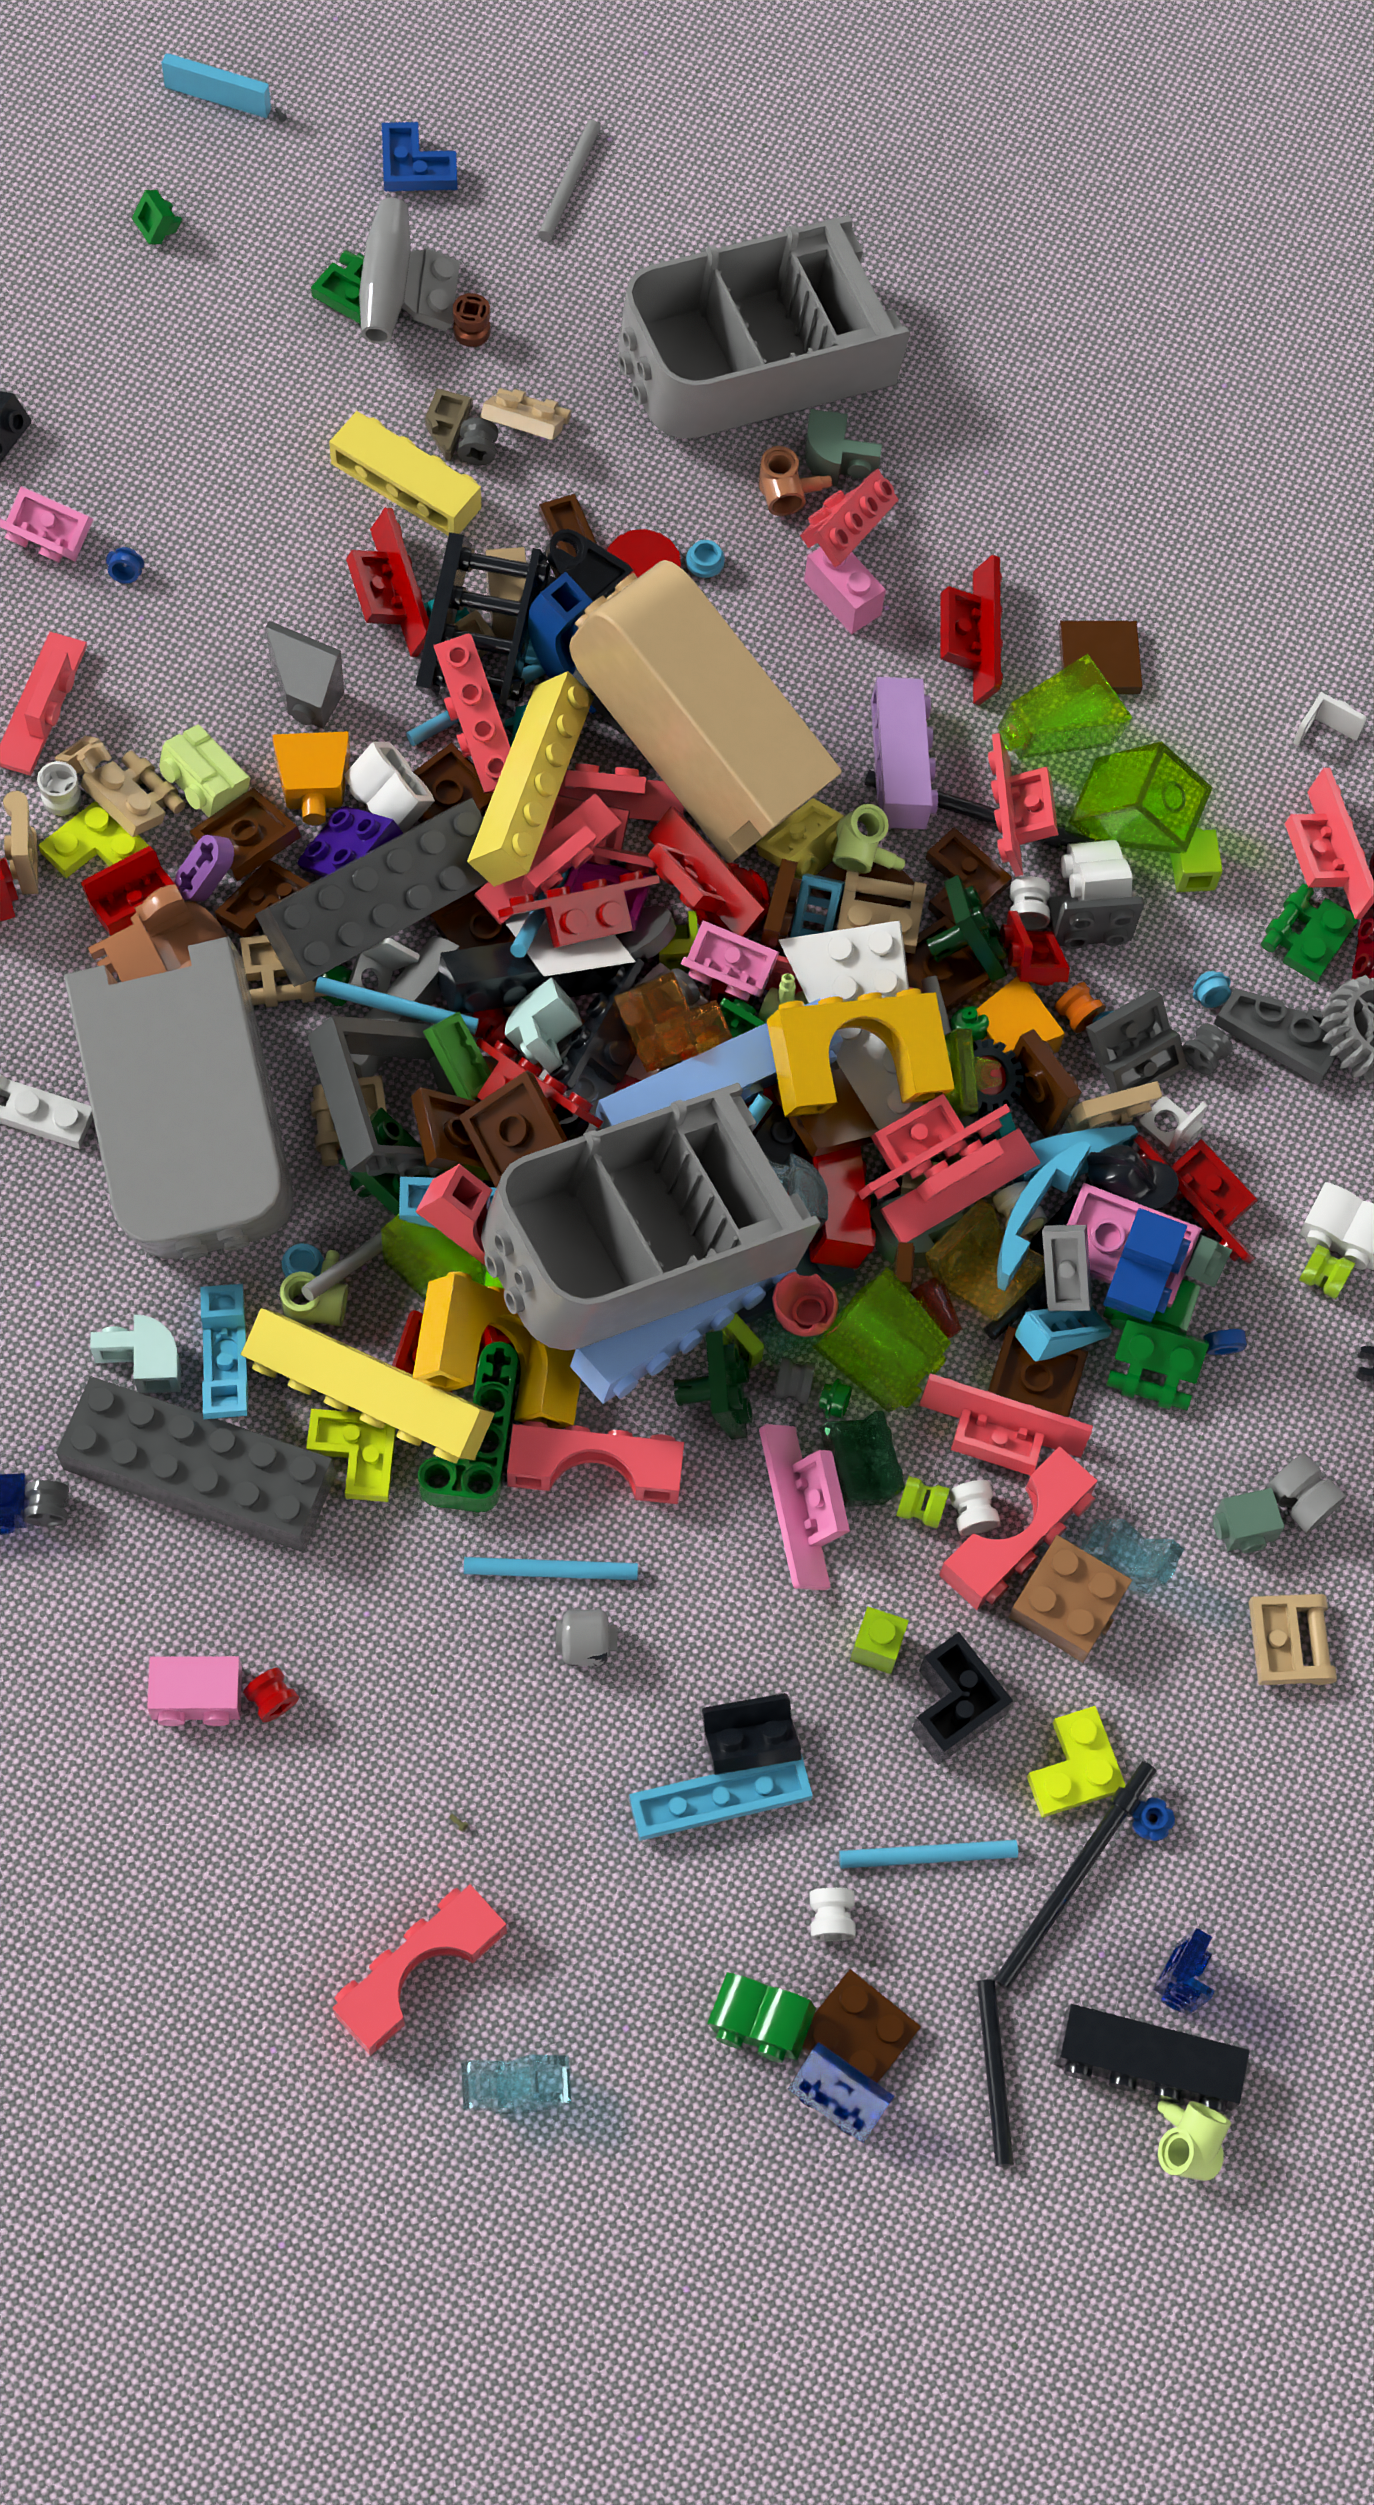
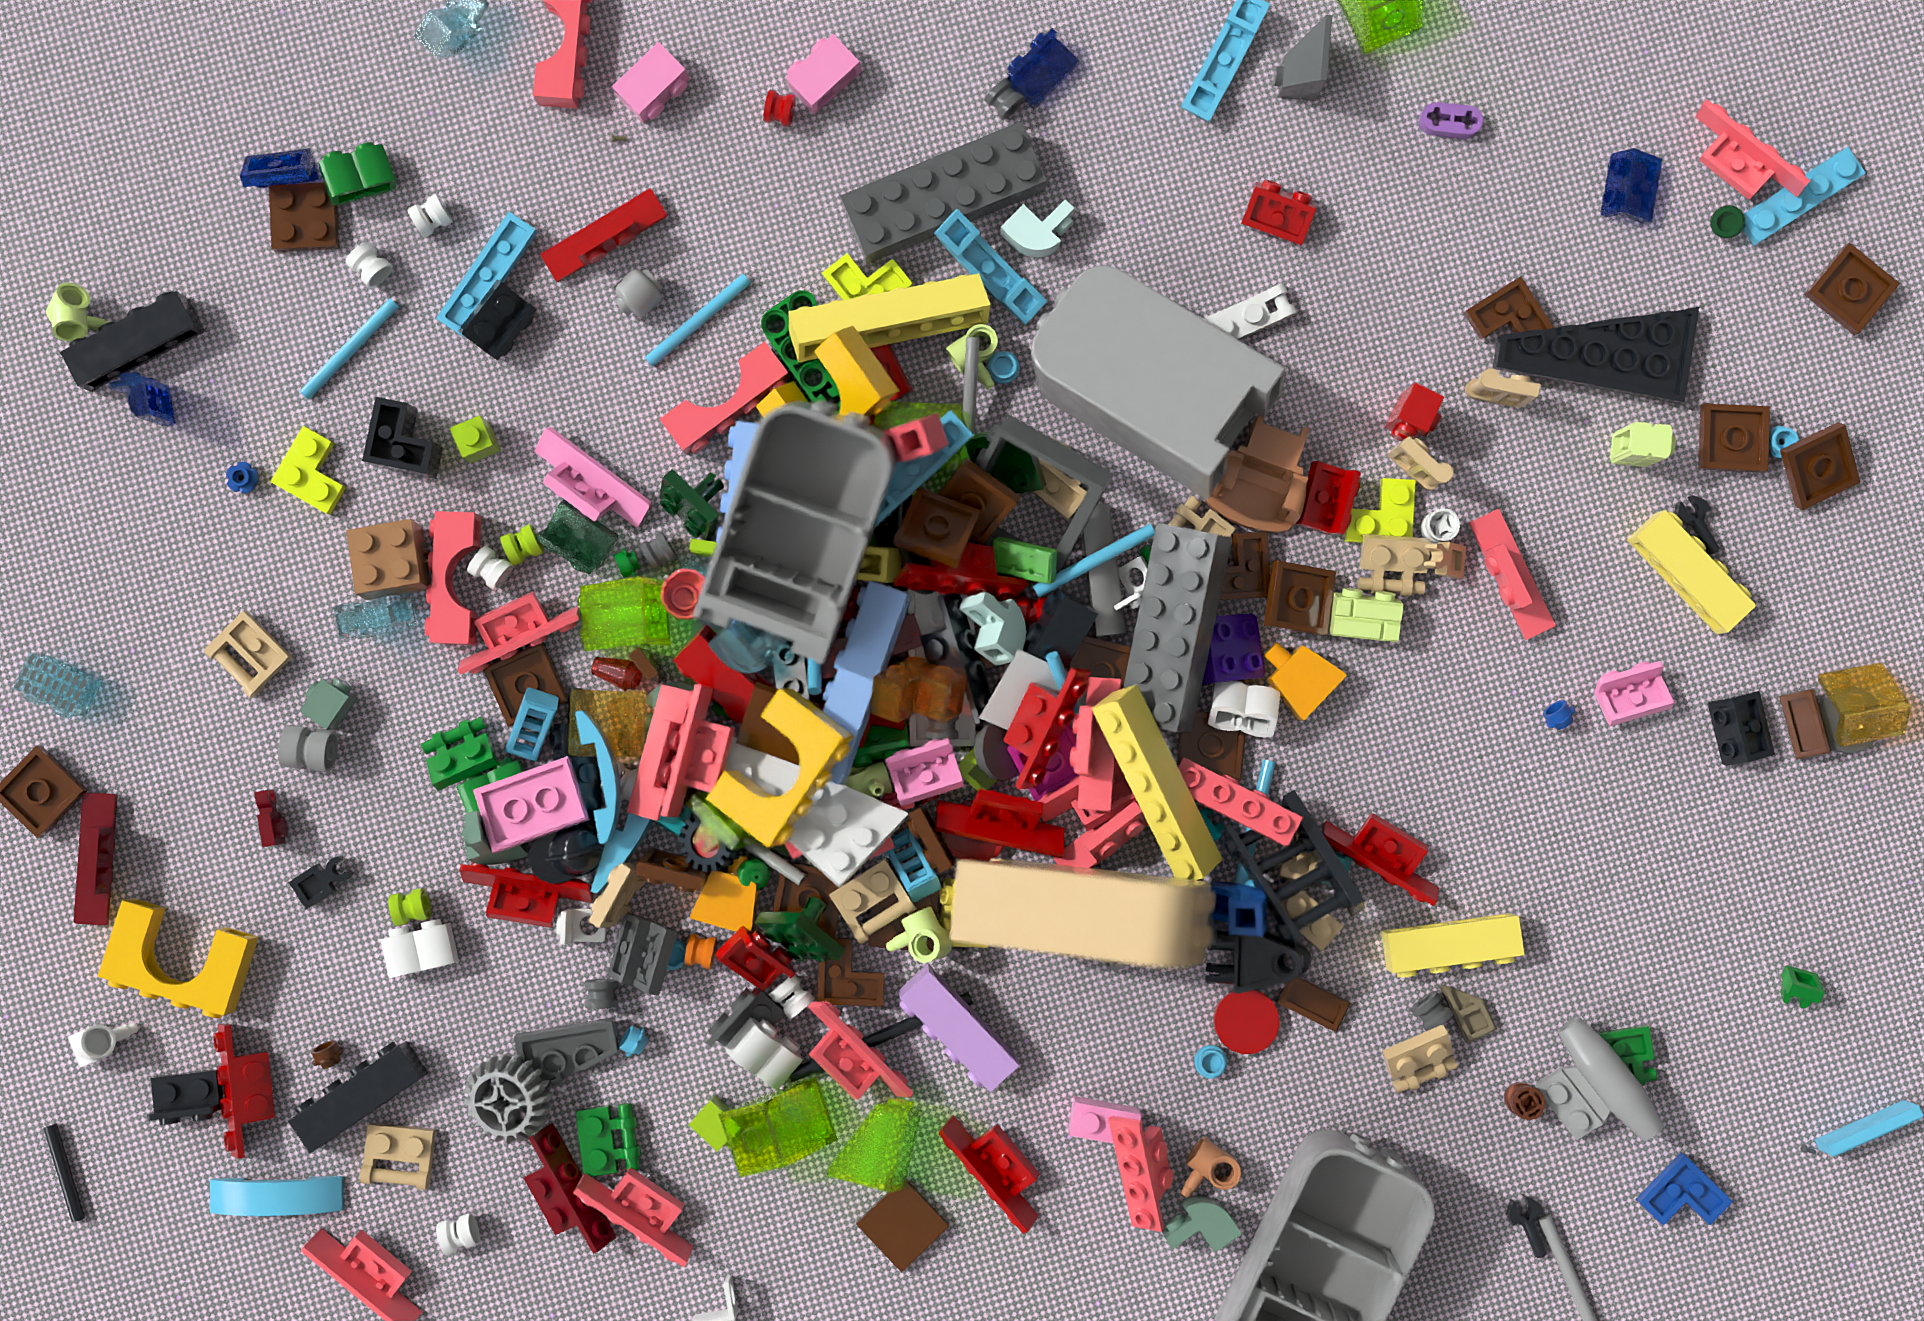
camera: 145 degrees right, 20 degrees up
(204, 867) = (1299, 550): medium lavender beam -> none
(306, 674) = (1366, 733): slope -> none
(373, 1836) = (651, 83): none -> bright pink brick
(562, 242) = (1528, 1223): none -> black bar
(566, 1728) = (604, 235): none -> red bracket
(713, 1908) = (435, 210): none -> white wheel
(995, 2073) = (213, 263): black bar -> none
(1067, 1267) = (550, 753): light grey plate -> none
(1123, 1804) = (262, 468): black bar -> none
(1148, 1257) = (497, 789): blue brick -> none
(1226, 1341) = (433, 805): blue tile -> none

